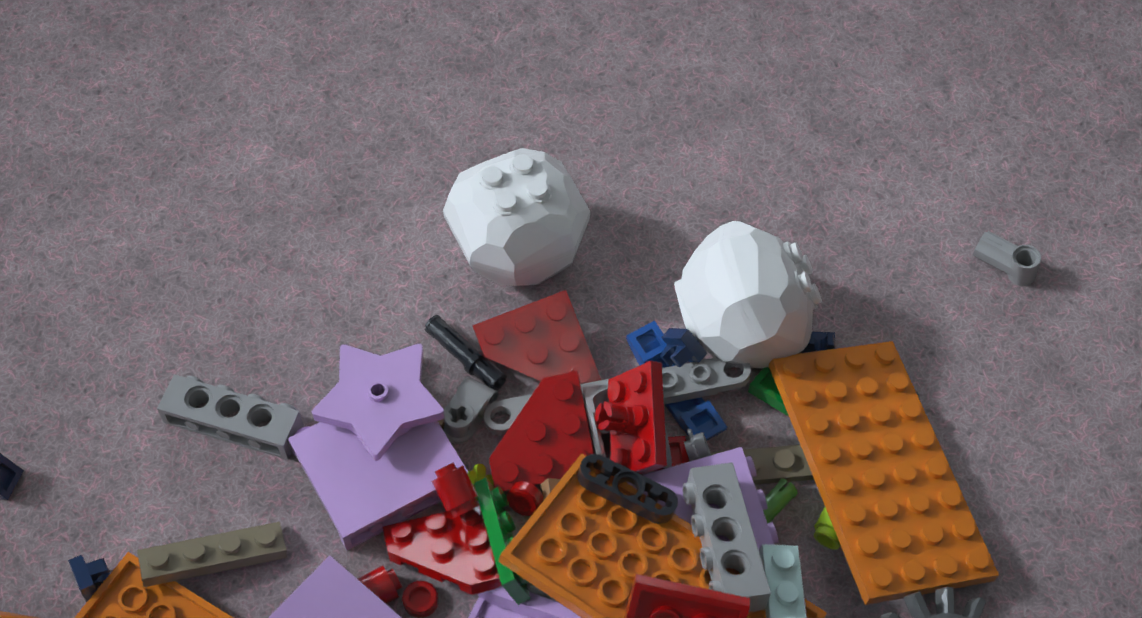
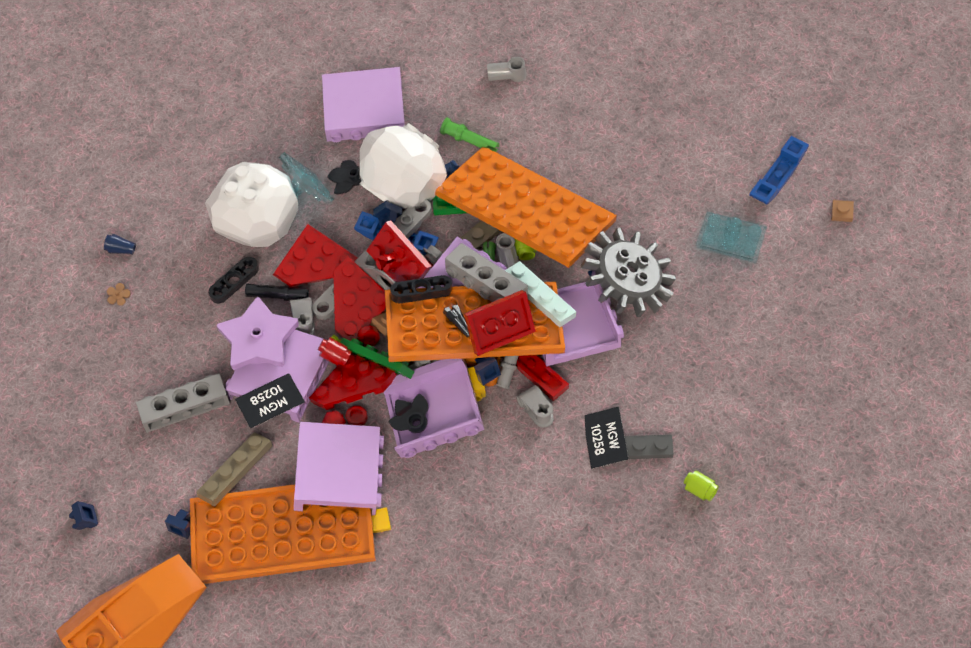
camera: 35 degrees left, 0 degrees up
(284, 219) = (118, 294): none -> medium nougat plant
(325, 495) = (269, 400): none -> black sticker
(334, 156) = (117, 245): none -> dark blue cone
(418, 290) = (233, 272): none -> black beam
(614, 227) = (304, 179): none -> clear light blue plate
(639, 561) = (457, 318): none -> black piece
(673, 257) = (345, 176): none -> black plate
(777, 177) = (361, 102): none -> lavender panel
(800, 522) = (508, 255): none -> light grey piece
(877, 303) = (461, 133): none -> bright green pin

